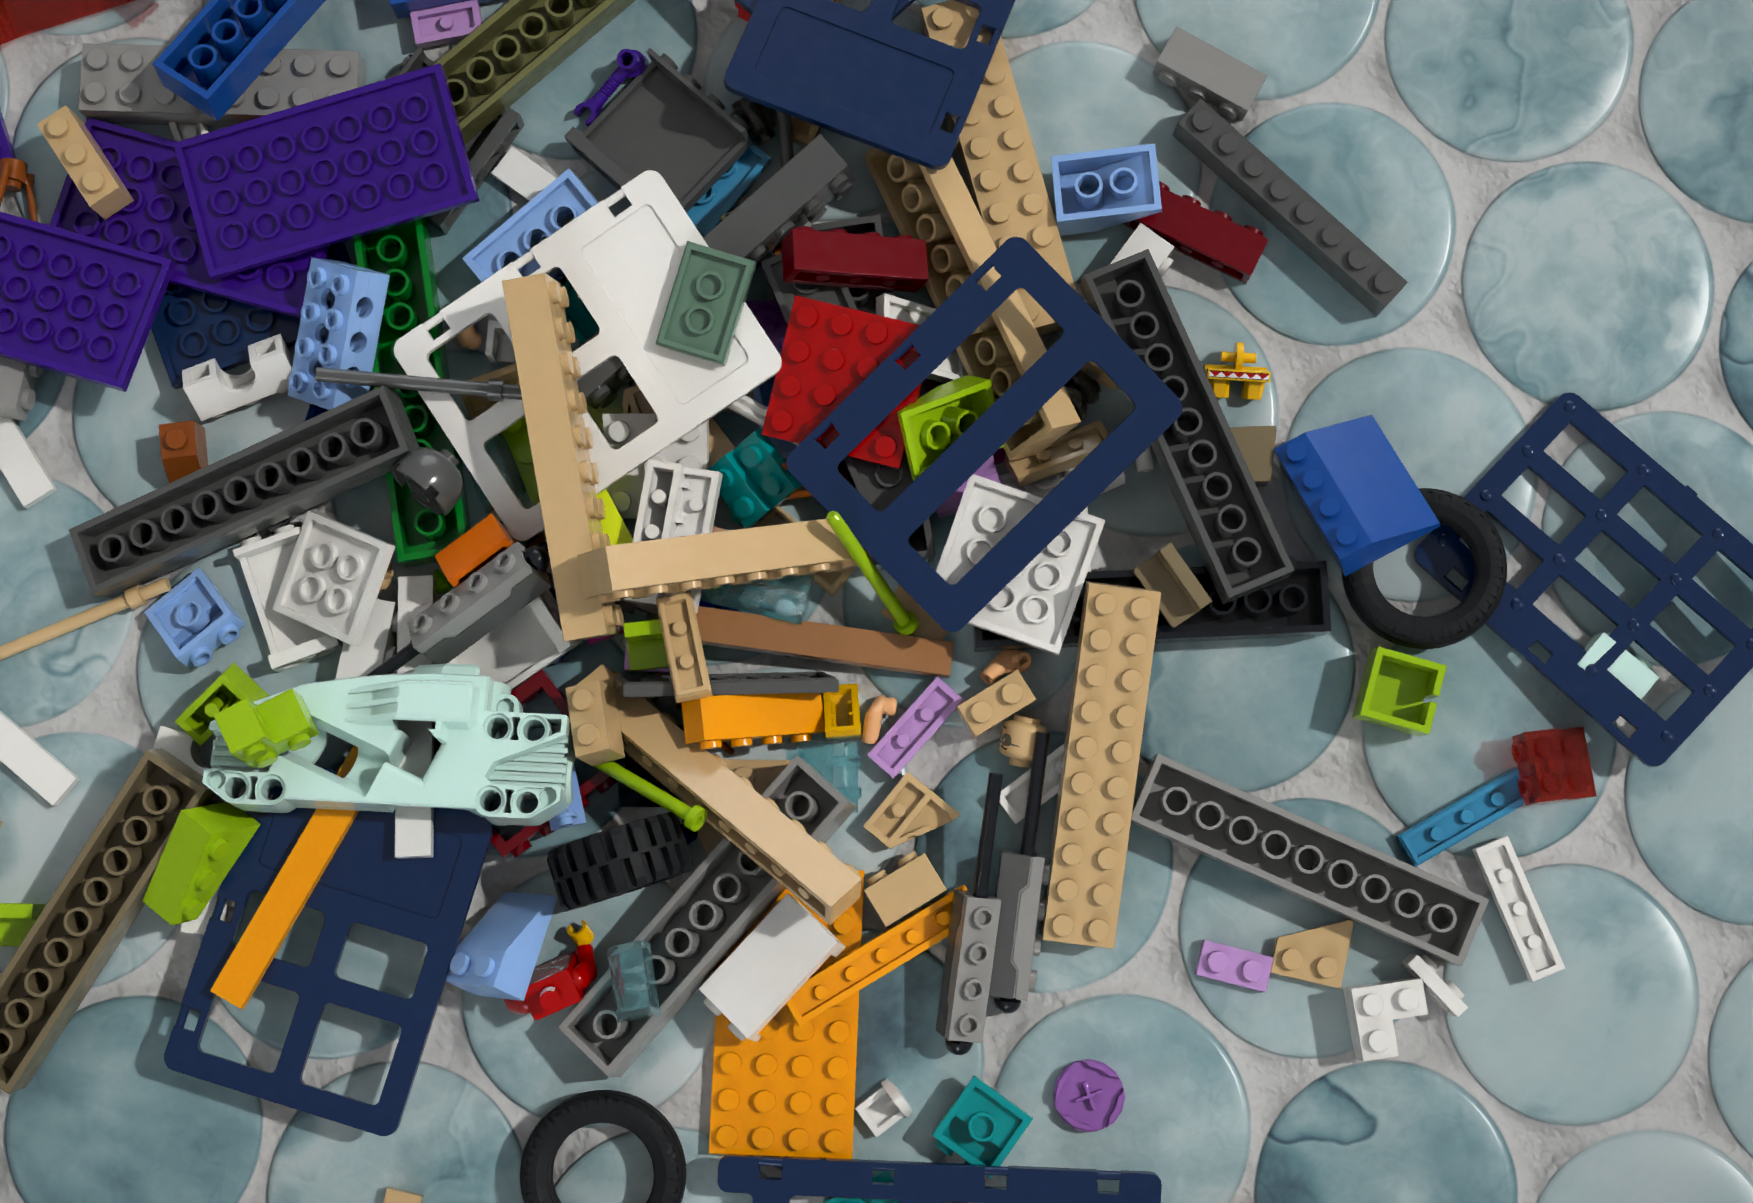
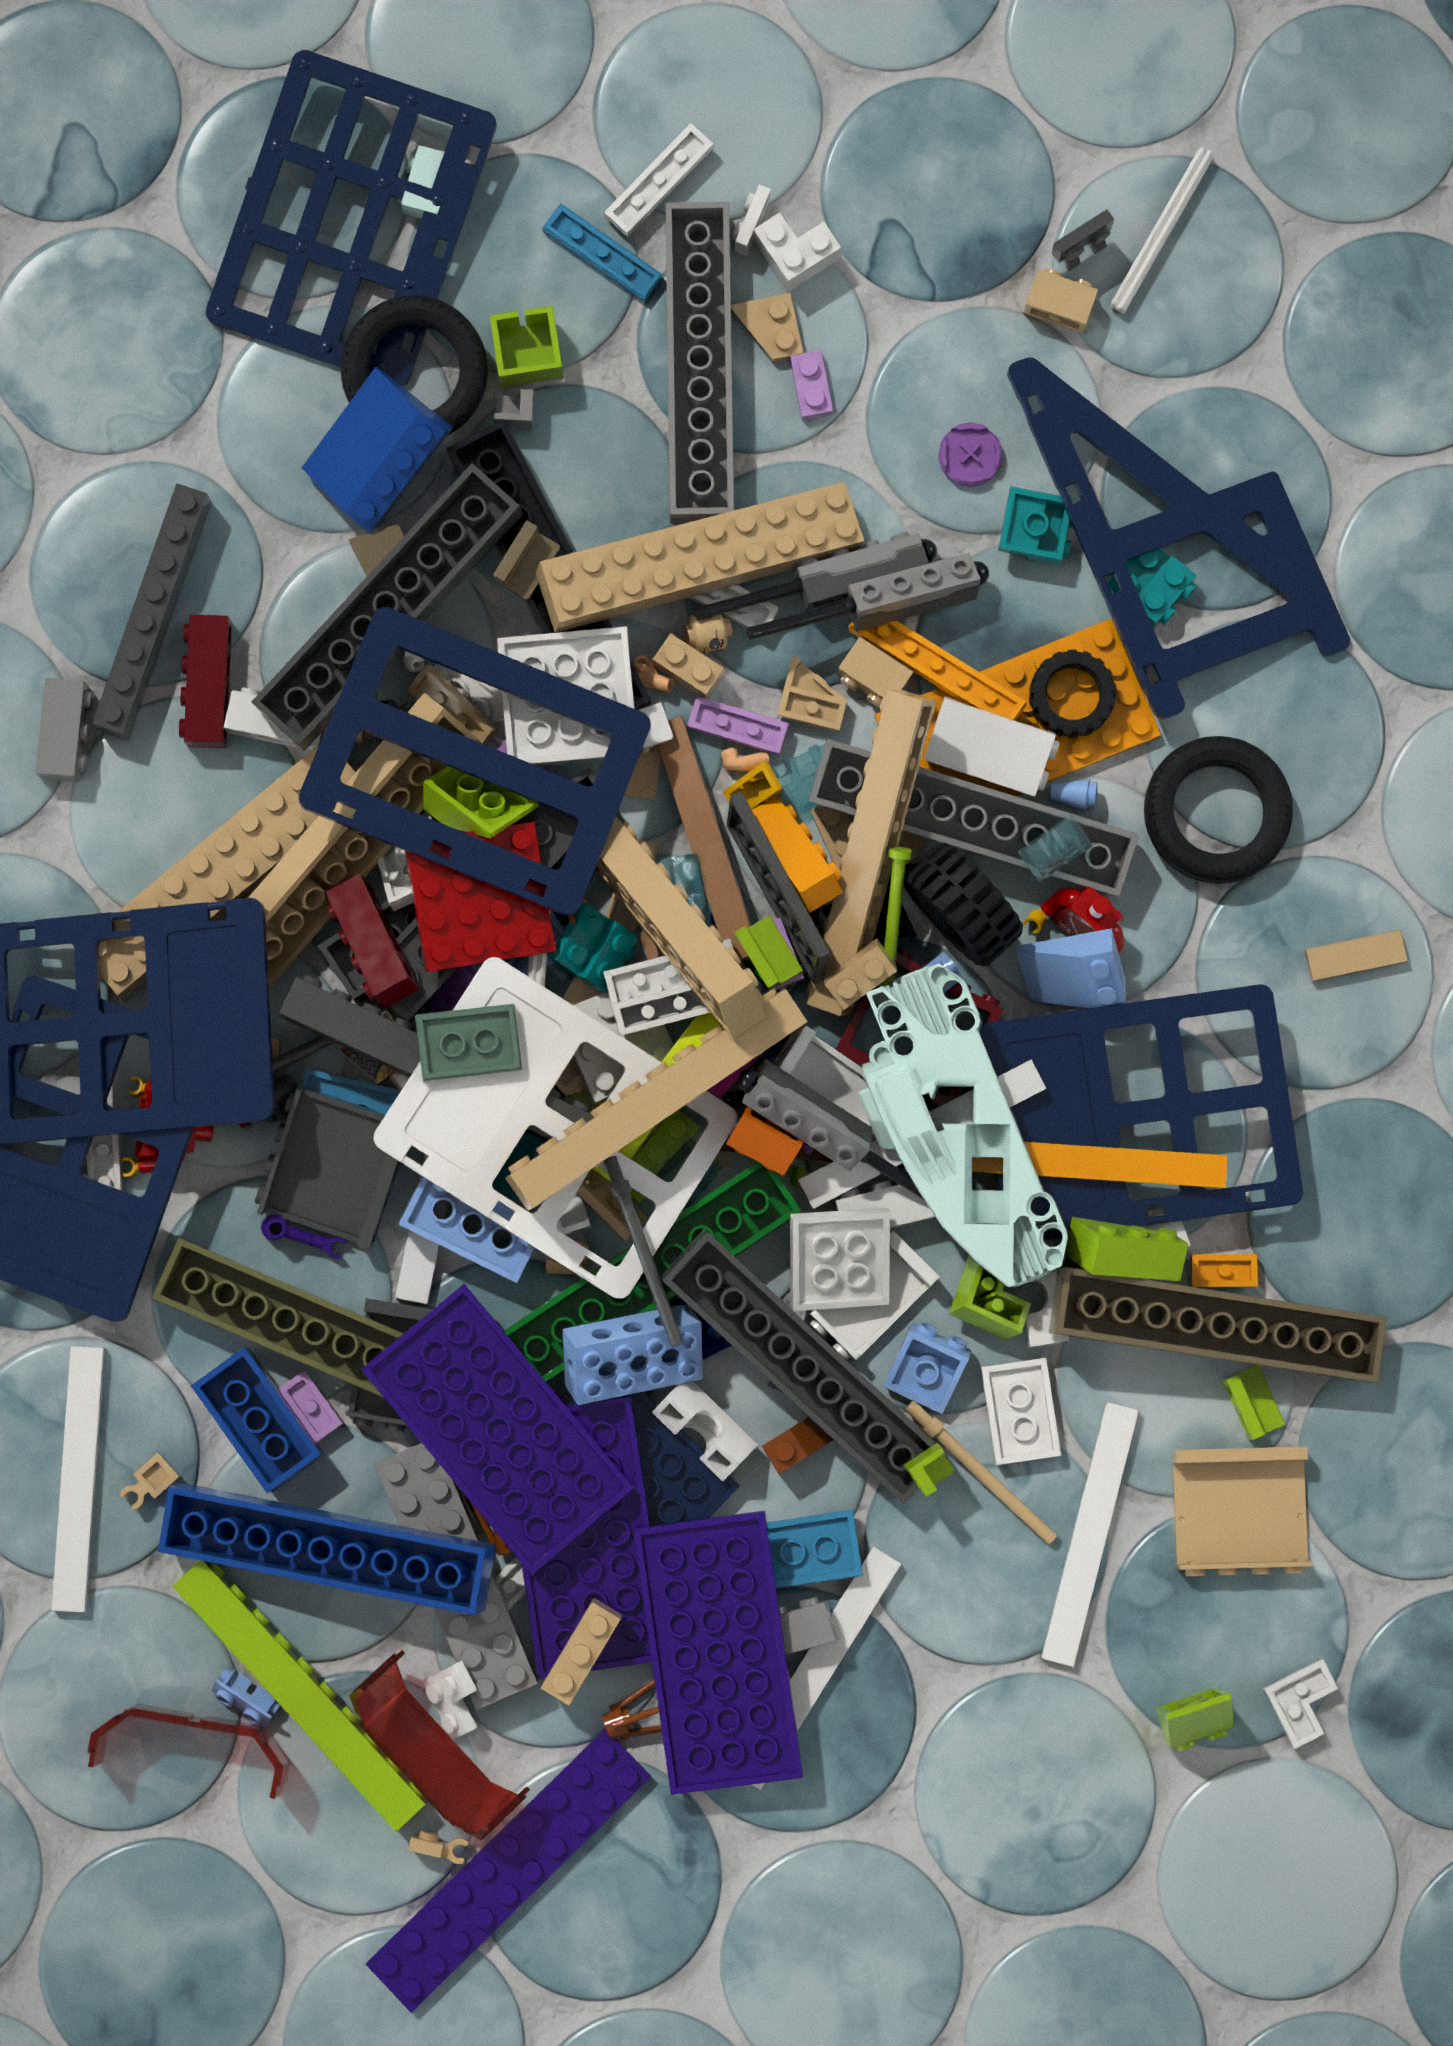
camera: 115 degrees left, 0 degrees up
(78, 428) = (815, 1549): none -> dark azure plate
(86, 564) = (929, 1469): none -> lime panel
(108, 32) = (447, 1692): none -> white plate
(109, 689) = (1020, 1411): none -> white plate
(144, 956) = (1224, 1270): none -> light orange plate
(266, 730) = (991, 1226): lime brick -> none
(431, 477) = (720, 1208): dark grey cylinder -> none
(683, 647) = (768, 923): tan tile -> none
(689, 1036) = (1075, 793): none -> light blue cone
(787, 1118) = (1088, 664): none -> black tyre
(884, 1108) = (1058, 612): white tile -> none
(905, 621) = (652, 774): lime bar -> none
(951, 644) = (660, 728): none -> white panel
(1105, 188) = (207, 768): light blue slope -> none
(1252, 377) = (311, 592): yellow hips -> none
(1338, 653) = (516, 410): none -> light grey panel
(1553, 766) = (529, 199): clear red plate -> none

